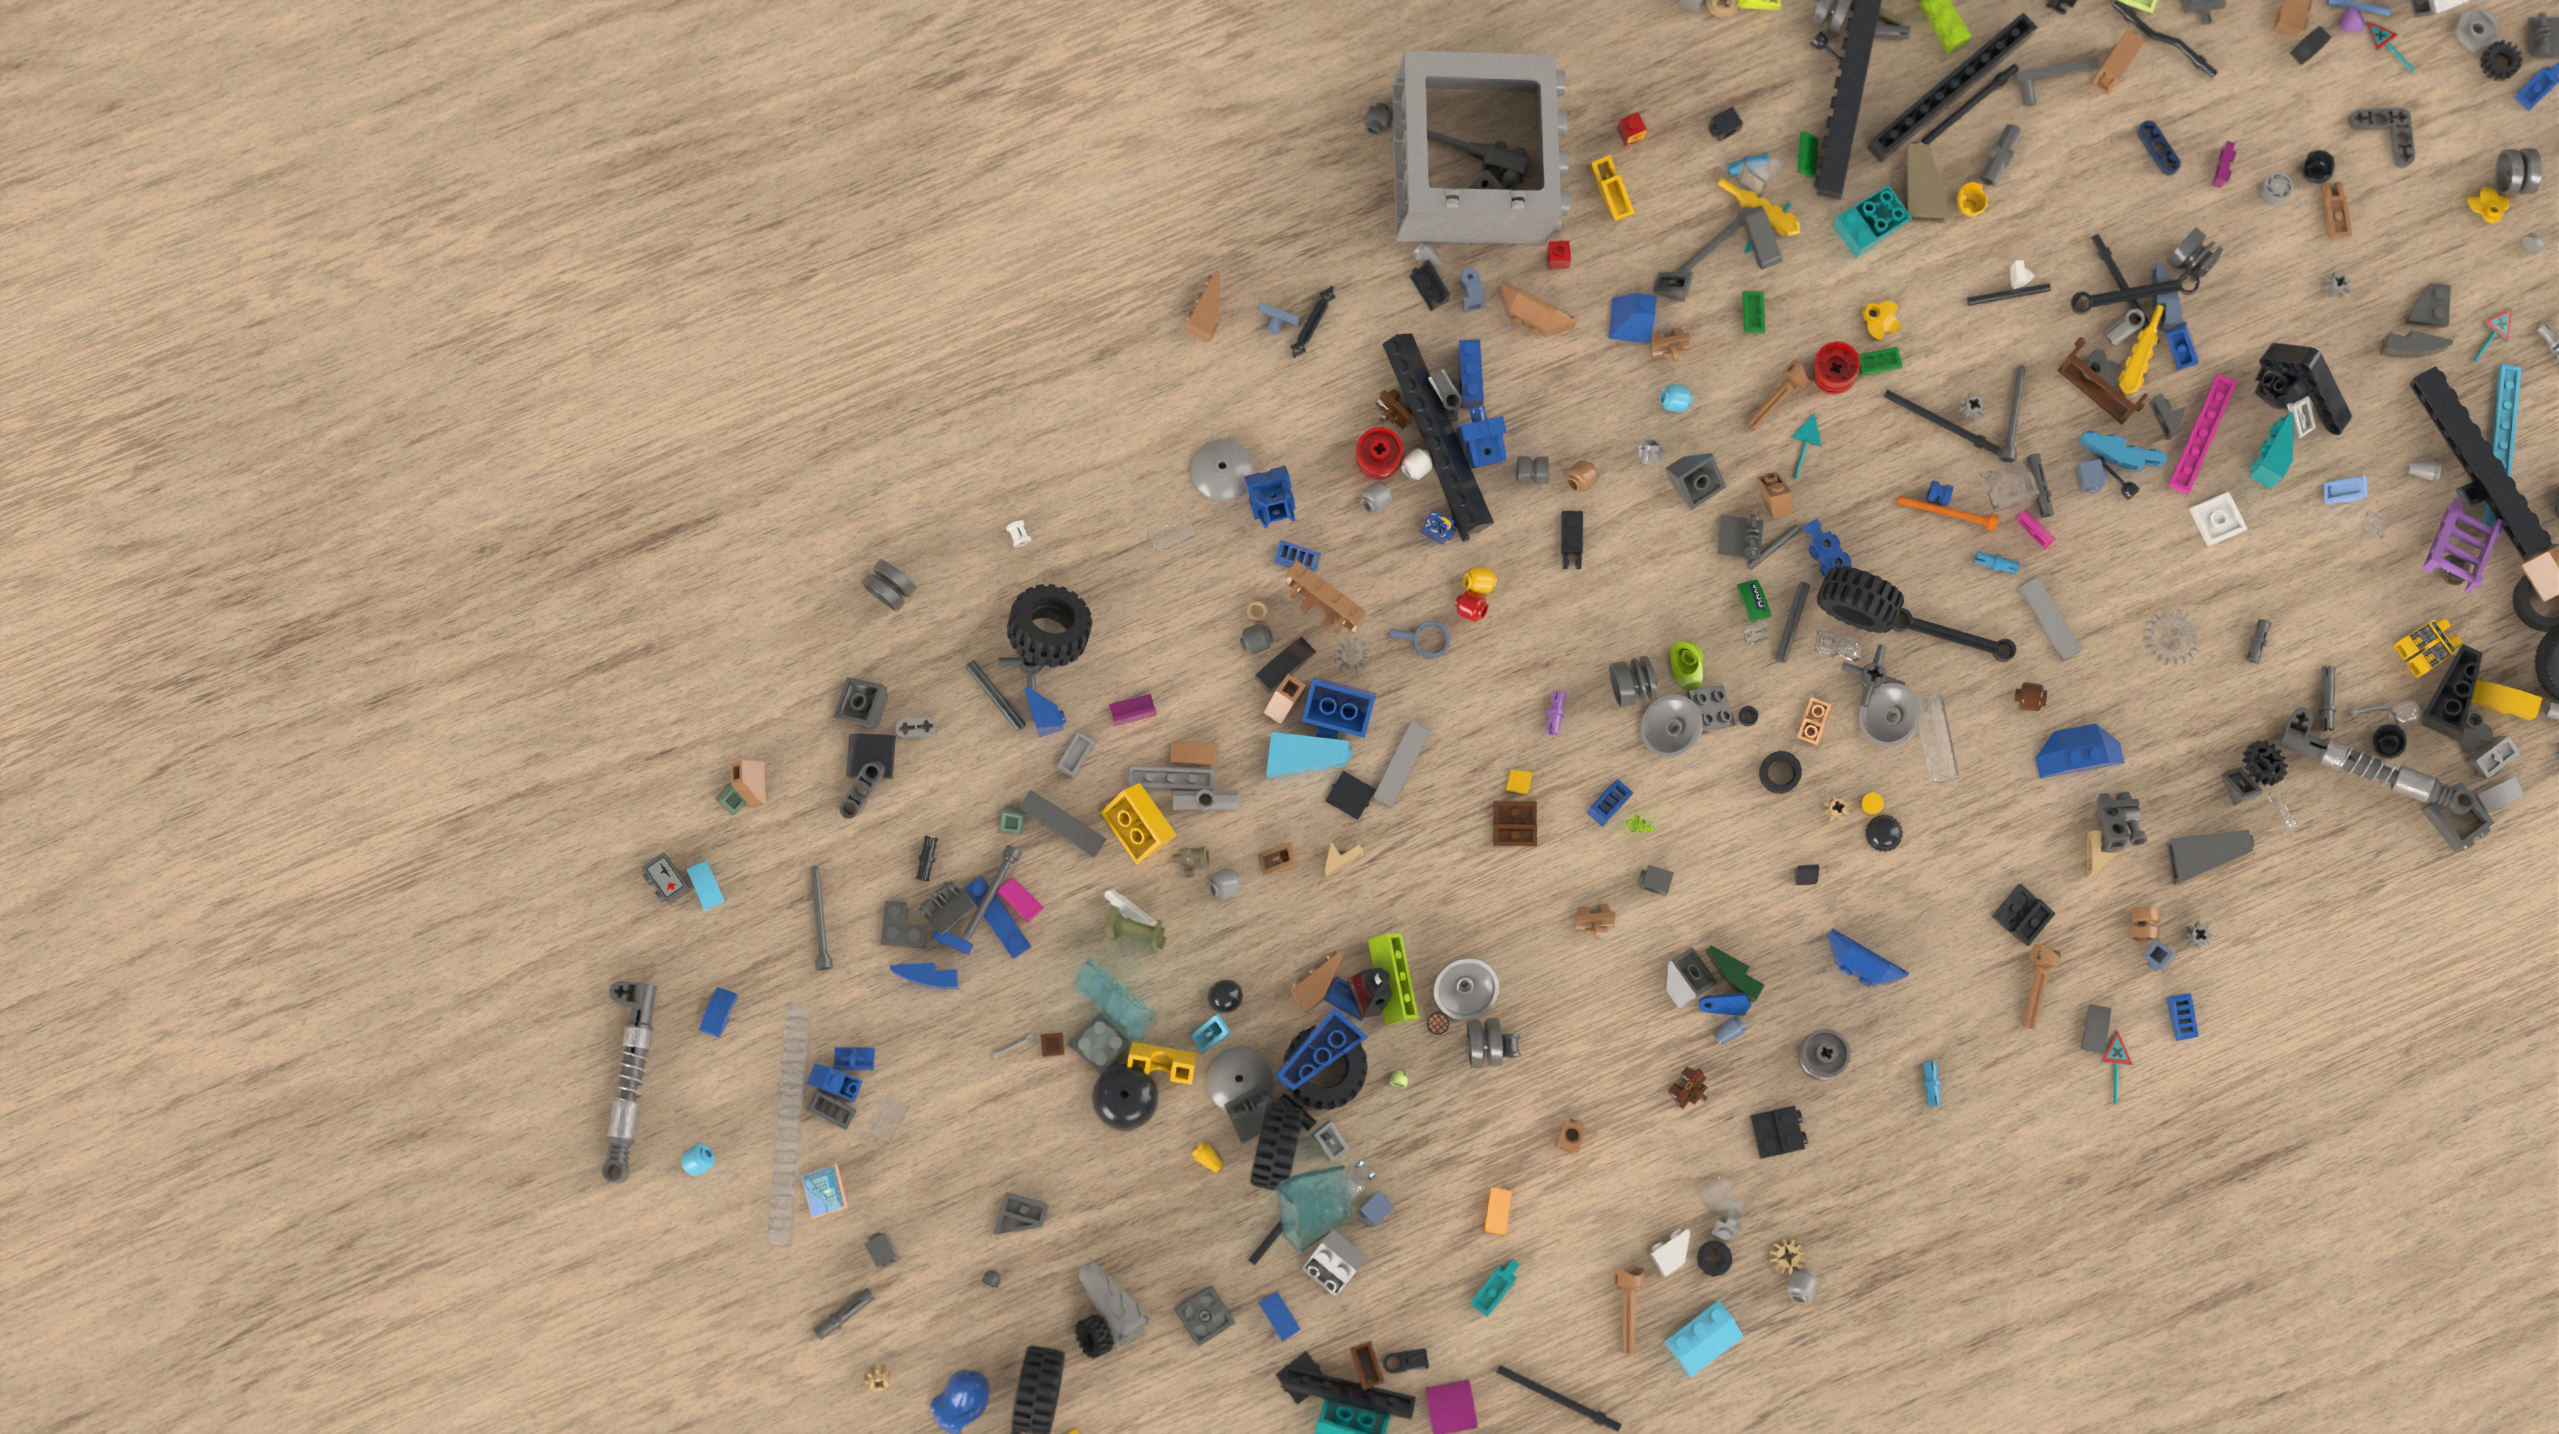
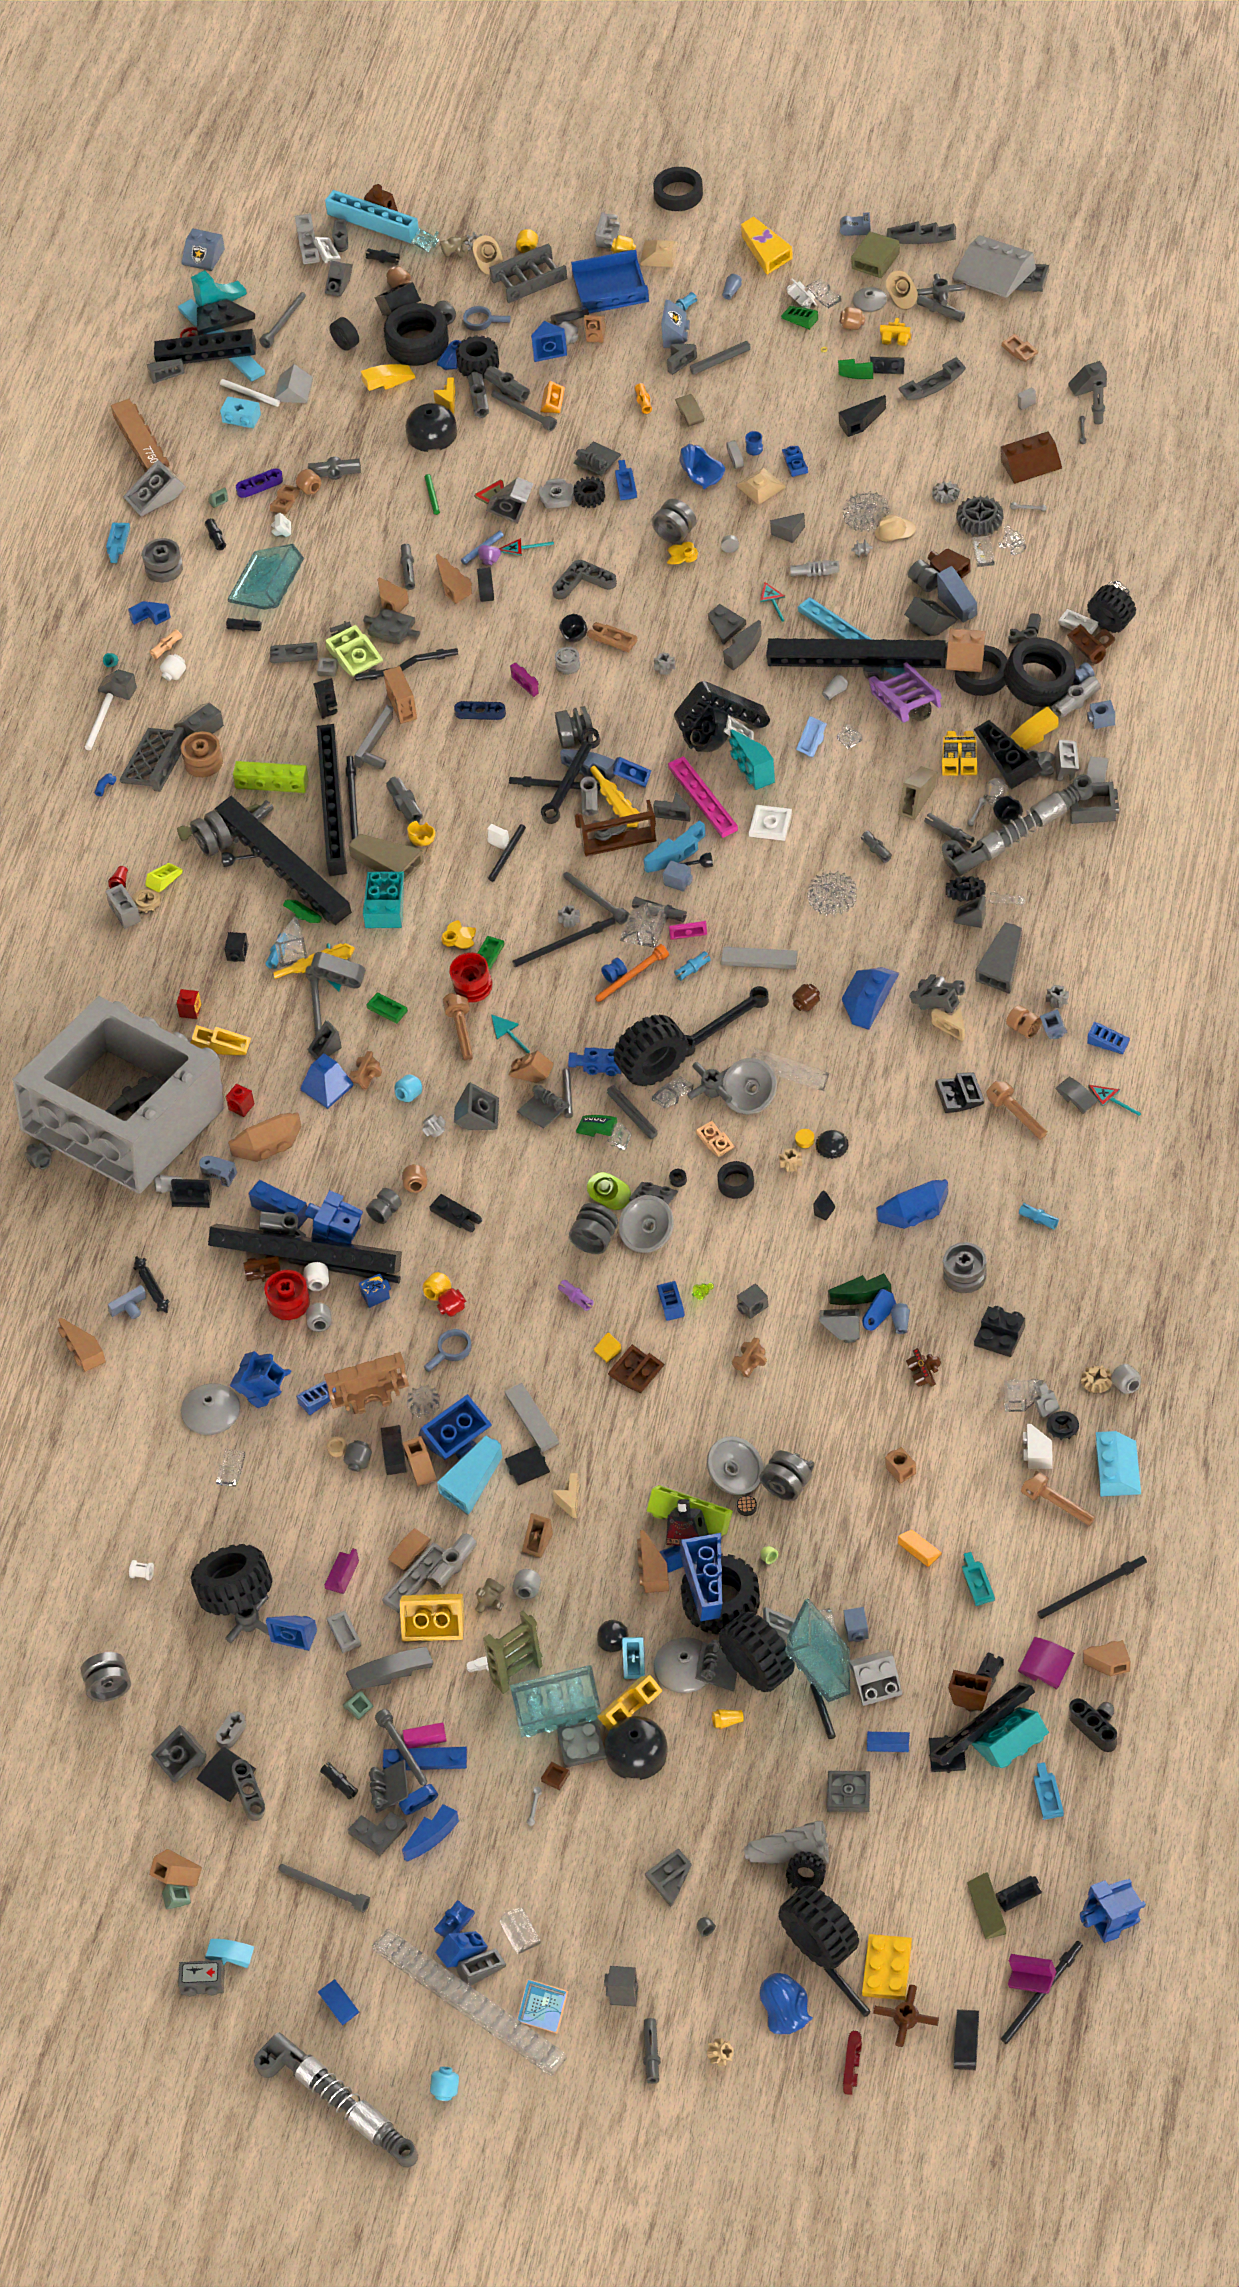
camera: 45 degrees left, 25 degrees down
(995, 695) = (252, 1660): dark grey axle -> none
(2350, 637) = (916, 792): none -> dark tan slope

